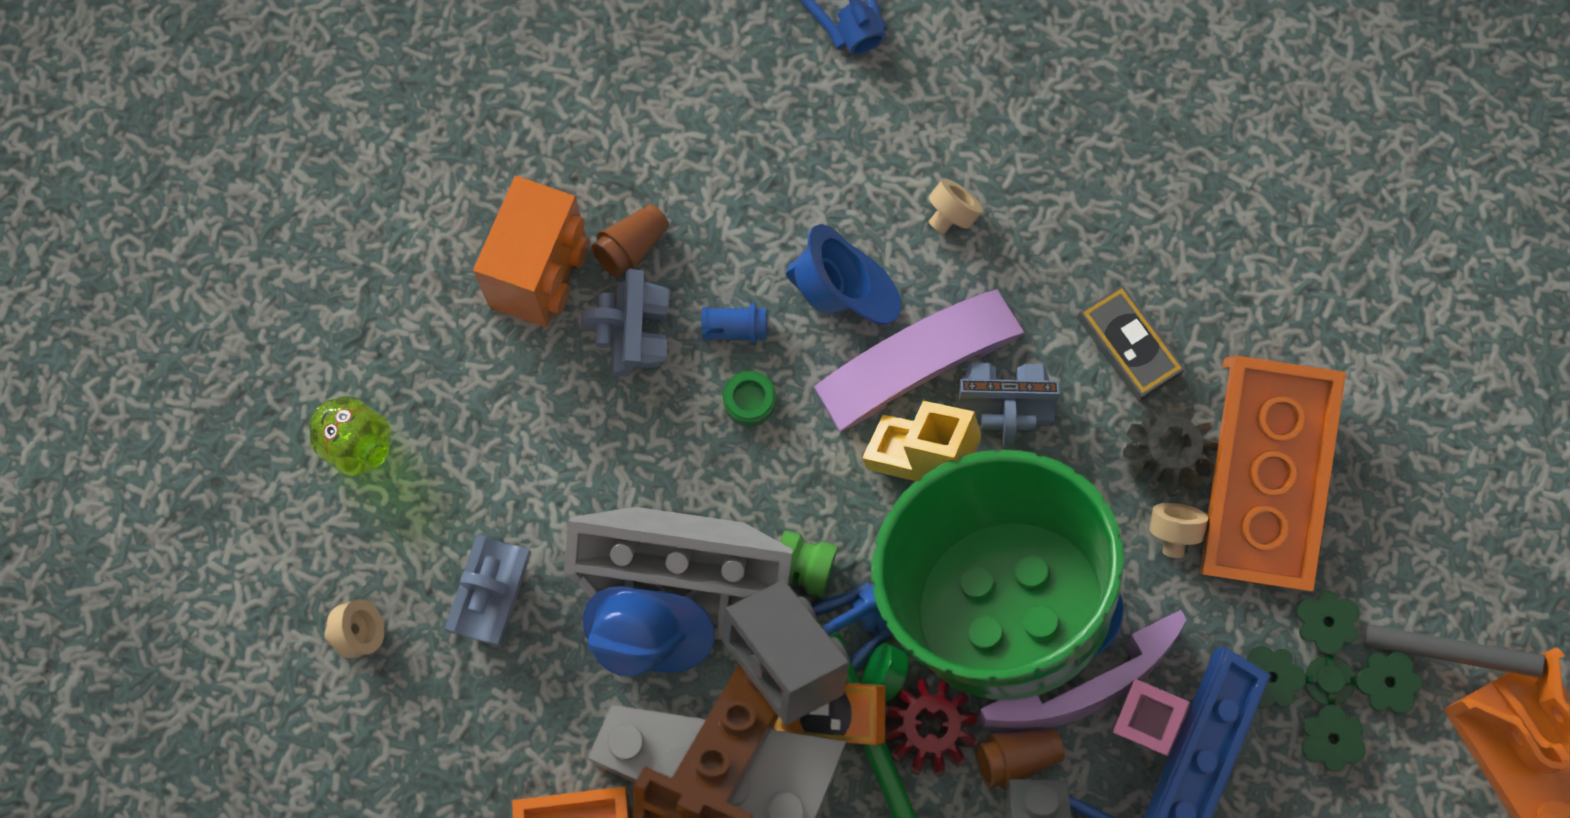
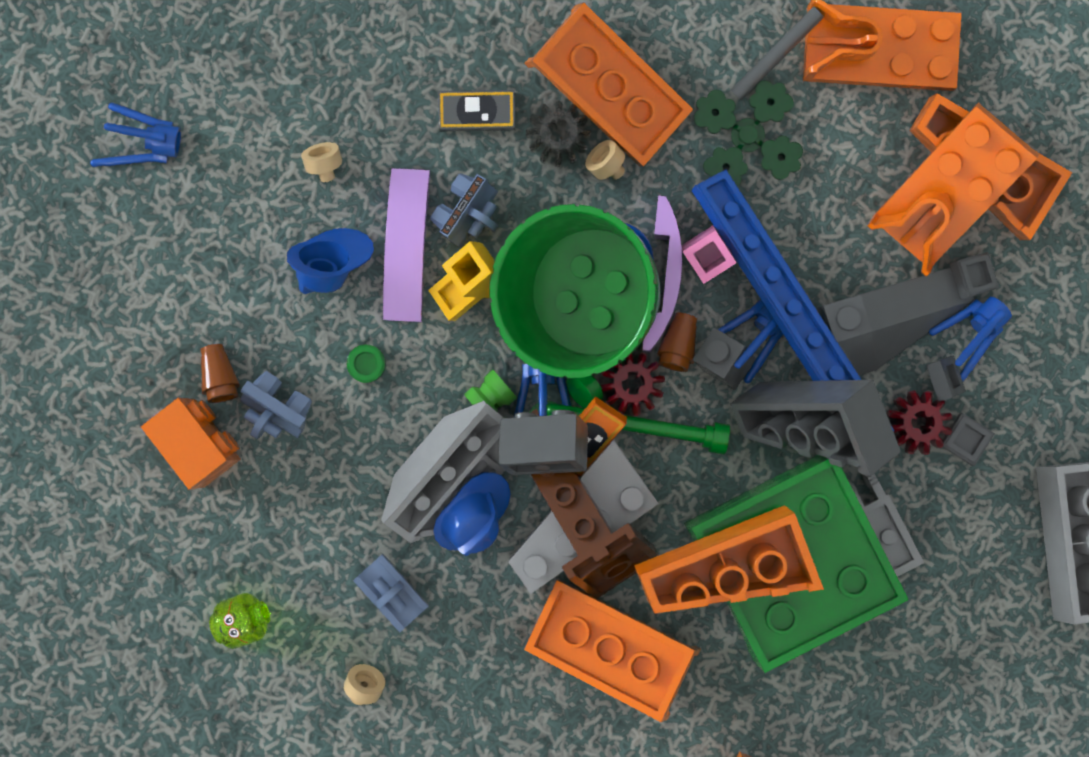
camera: 60 degrees left, 15 degrees up
(735, 323) = (313, 343): blue pin -> none

